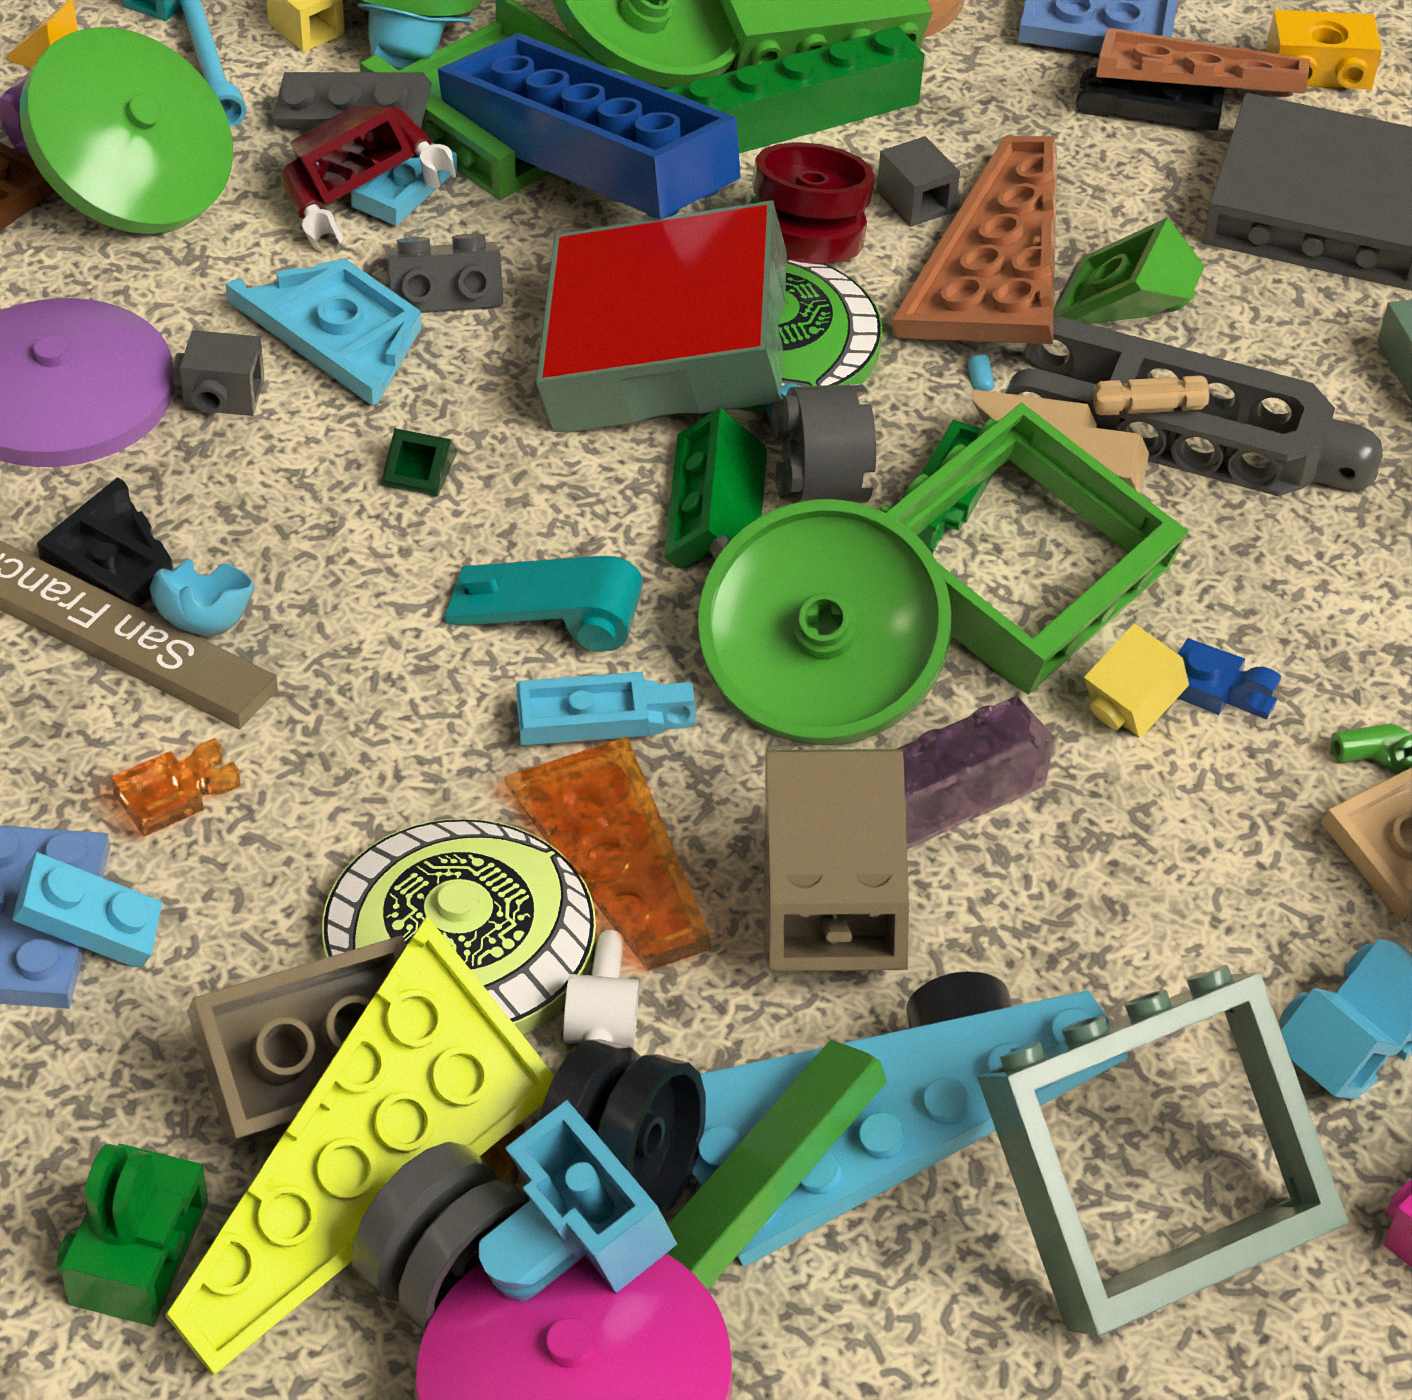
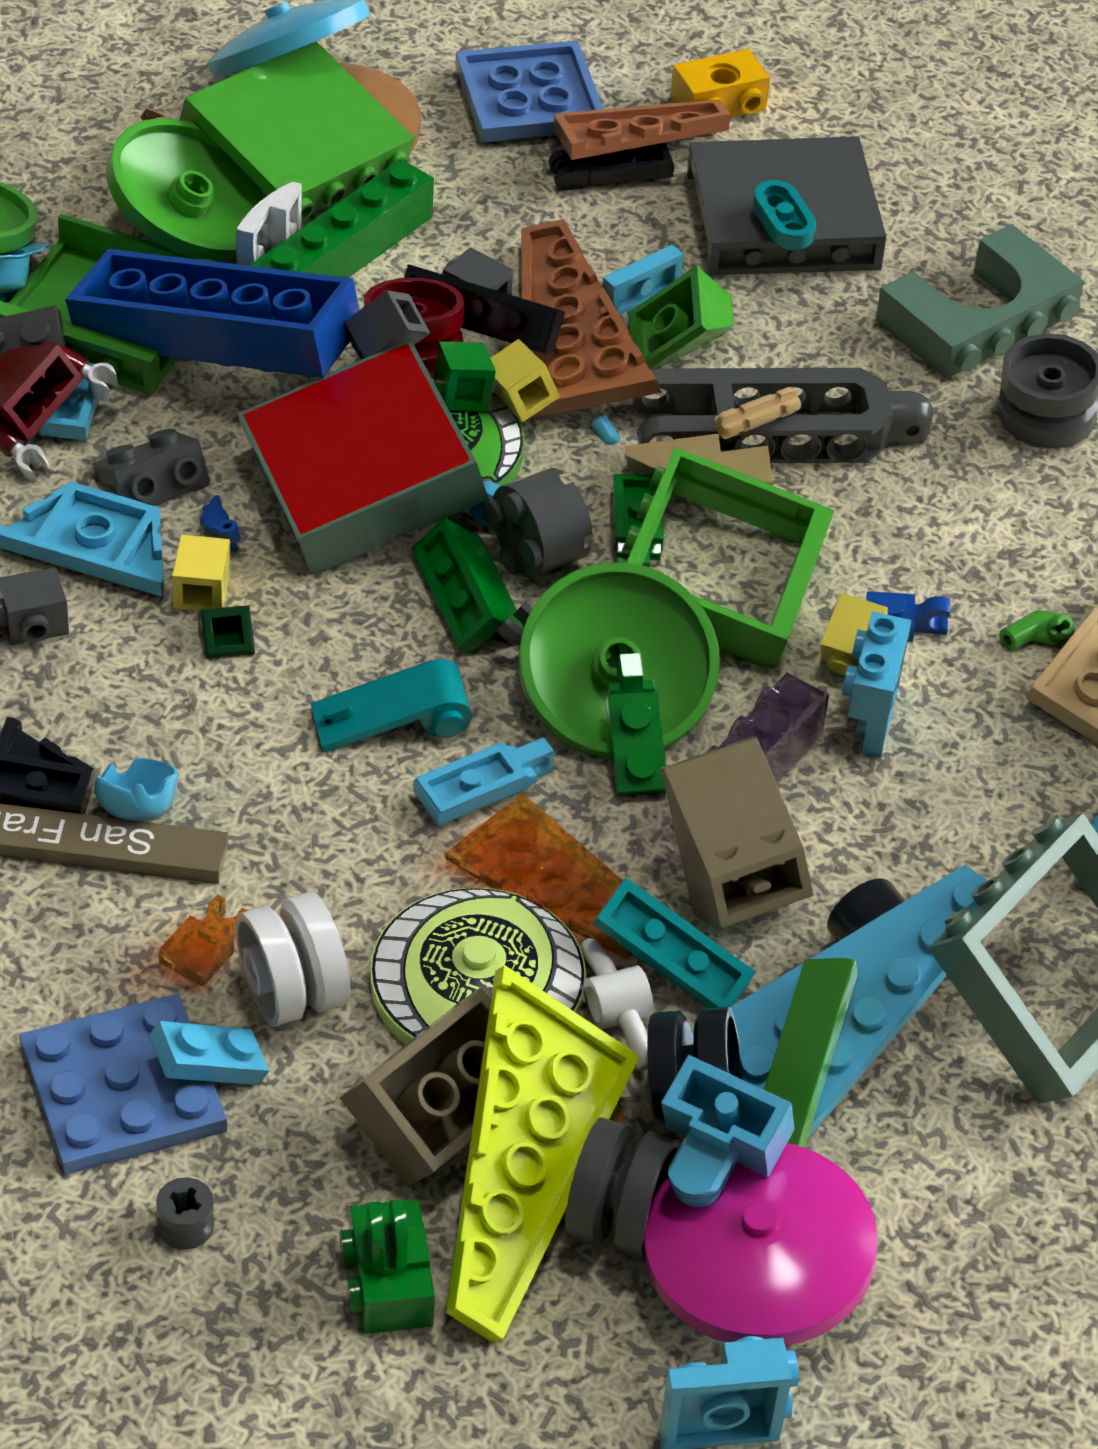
camera: 25 degrees left, 0 degrees up
(226, 832) = (292, 958): none -> white wheel
(423, 391) = (201, 573): none -> light yellow brick
(481, 348) = (217, 522): none -> blue piece
(696, 972) = (673, 946): none -> teal plate
(706, 50) = (269, 223): none -> white slope
(758, 174) = (385, 323): none -> dark grey brick
(805, 694) = (635, 730): none -> green hinge
(830, 264) = (464, 376): none -> green panel
(896, 287) = (522, 381): none -> light yellow brick
(916, 212) = (502, 314): none -> black tile
(1095, 224) = (643, 278): none -> medium azure plate
(1126, 738) = (877, 677): none -> medium azure plate
(1307, 192) = (784, 214): none -> teal plate

